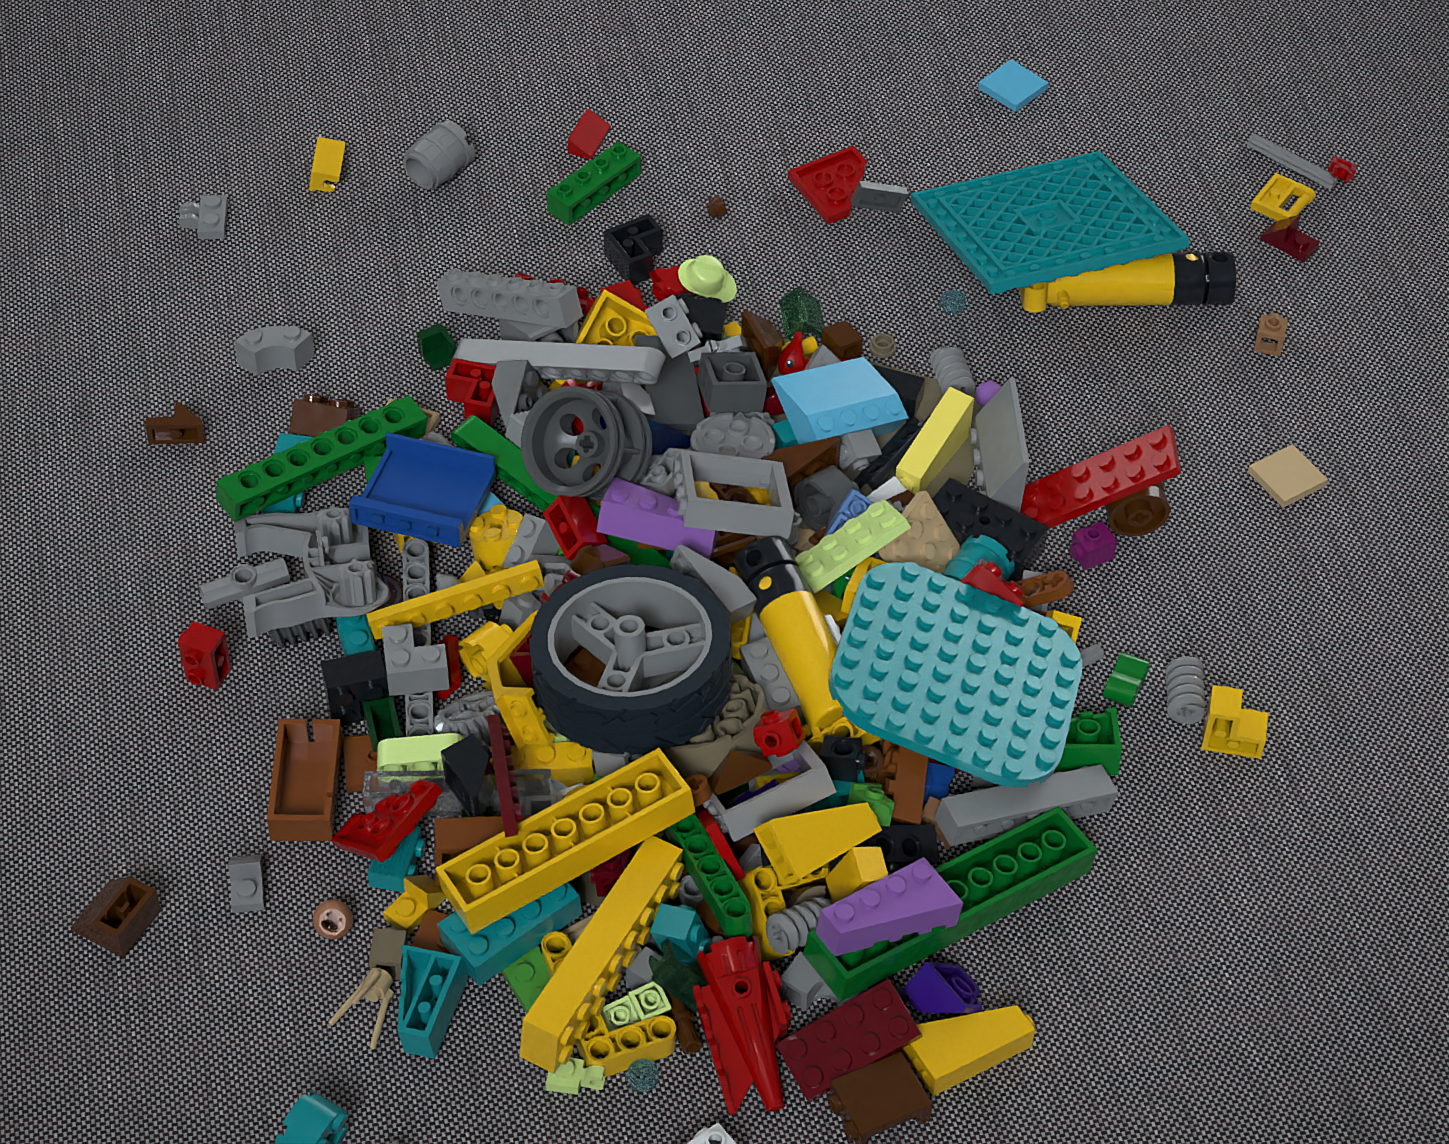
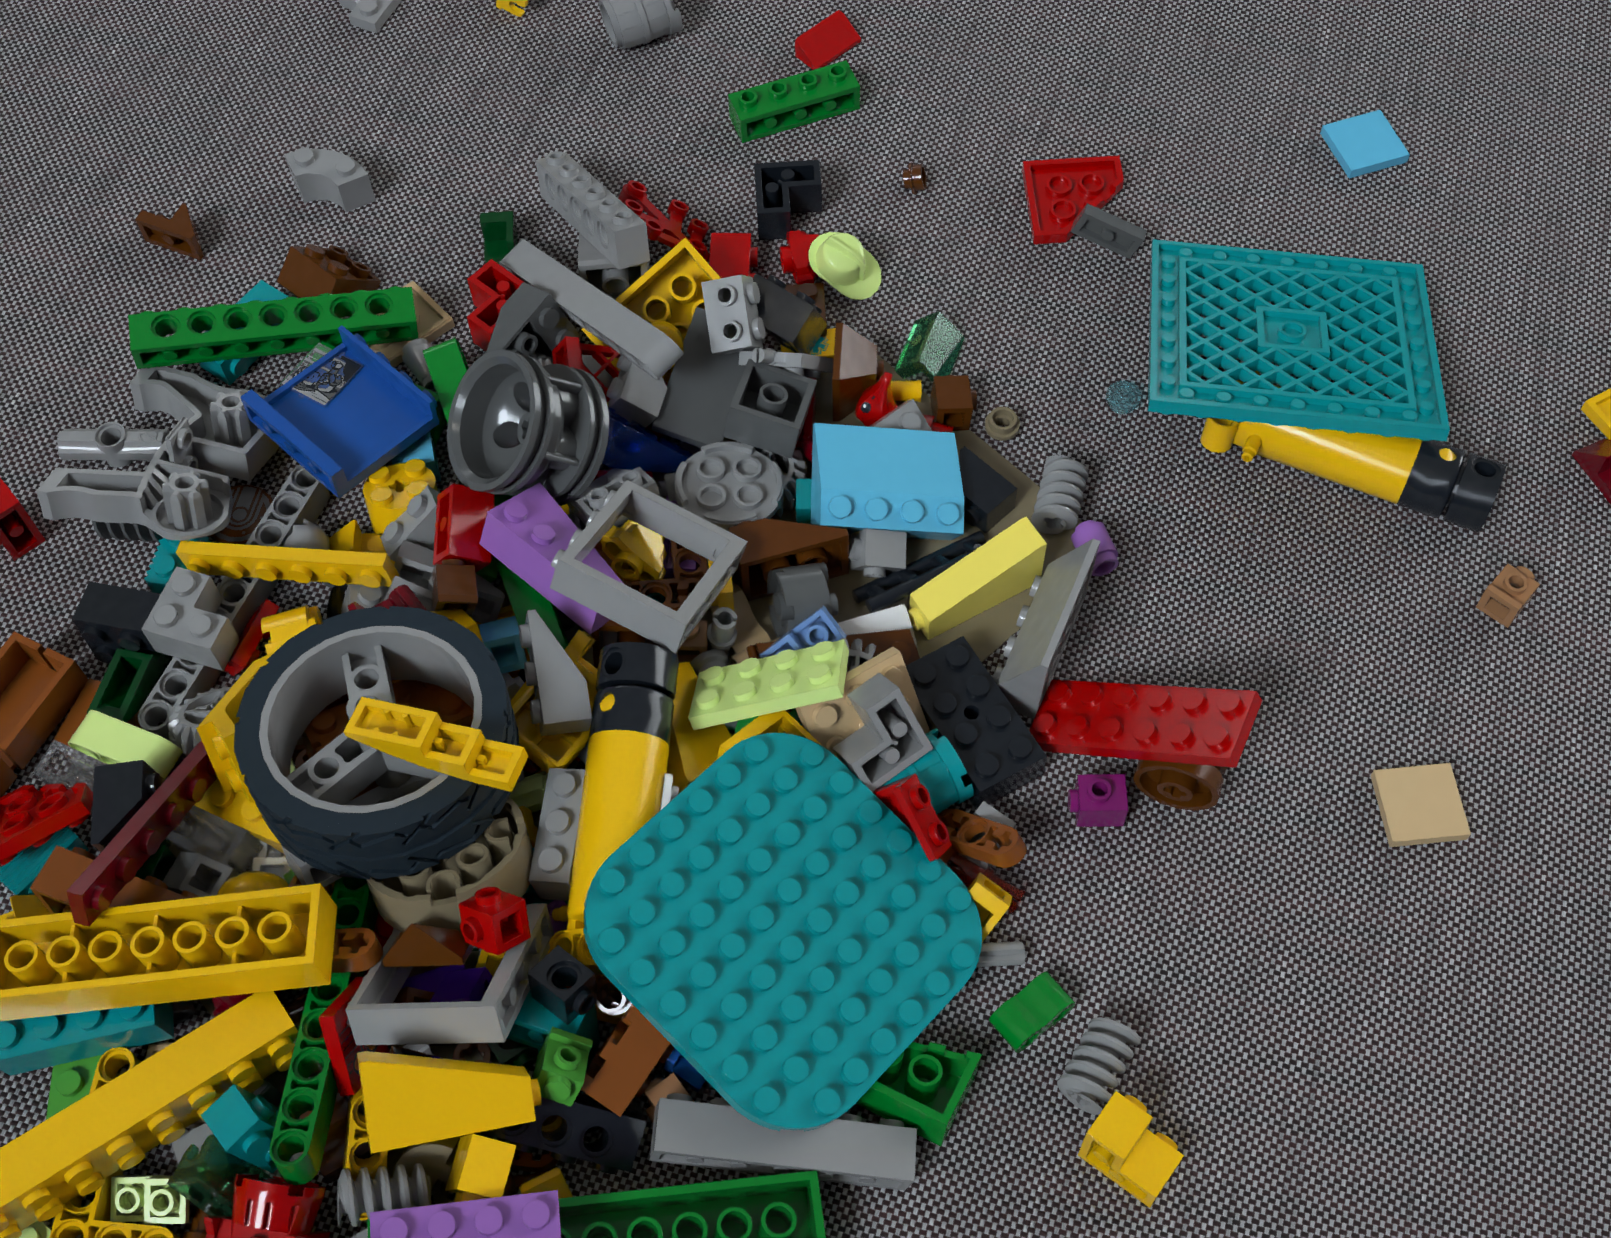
camera: 30 degrees right, 10 degrees up
(393, 477) = (328, 380): none -> piece
(682, 629) = (436, 745): none -> yellow slope
(947, 540) = (889, 734): none -> light grey brick

